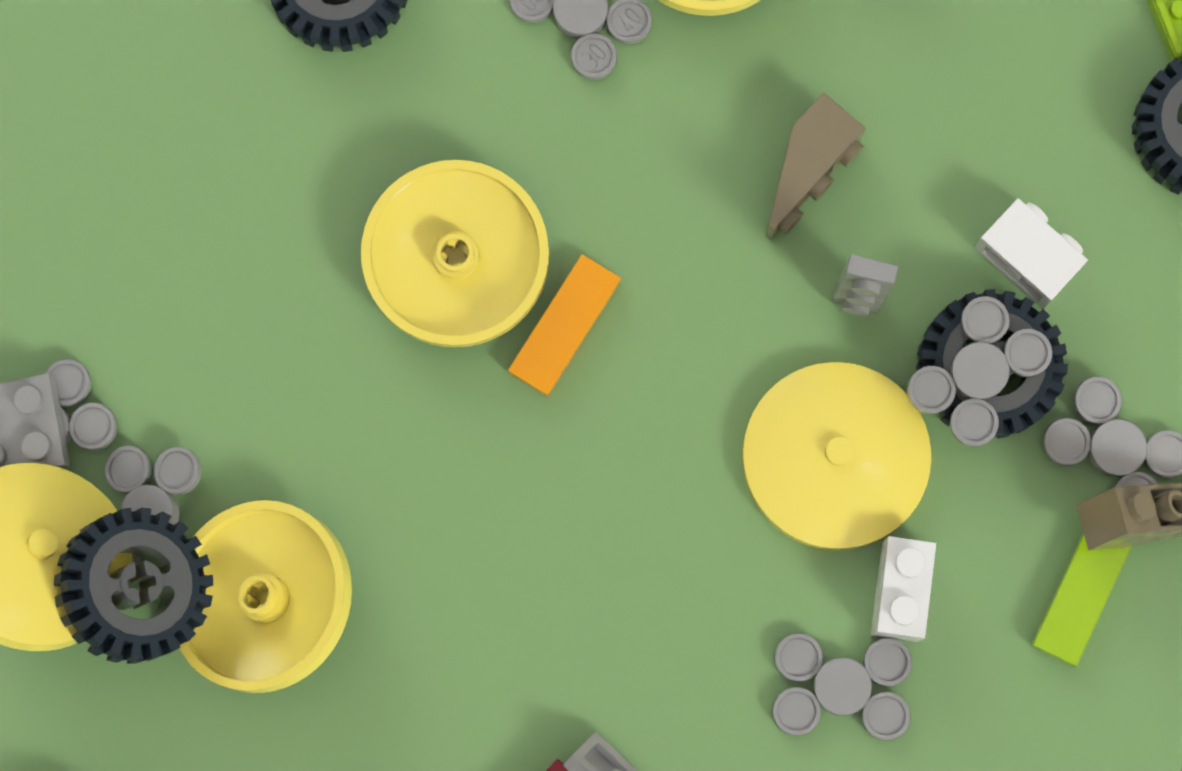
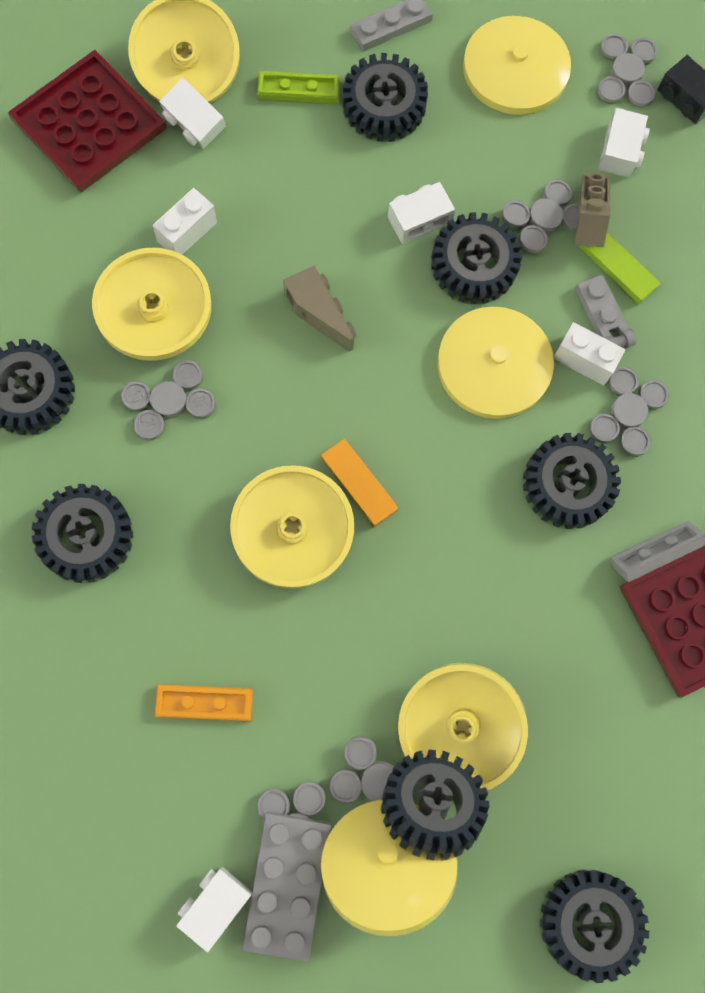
camera: 75 degrees left, 5 degrees down
(170, 236) = (204, 702): none -> light orange tile
(738, 632) = (584, 463): none -> wheel
(864, 285) = (411, 298): light grey plate -> none
(979, 371) = (482, 261): light grey piece -> none
(988, 595) = (604, 311): none -> light grey plate

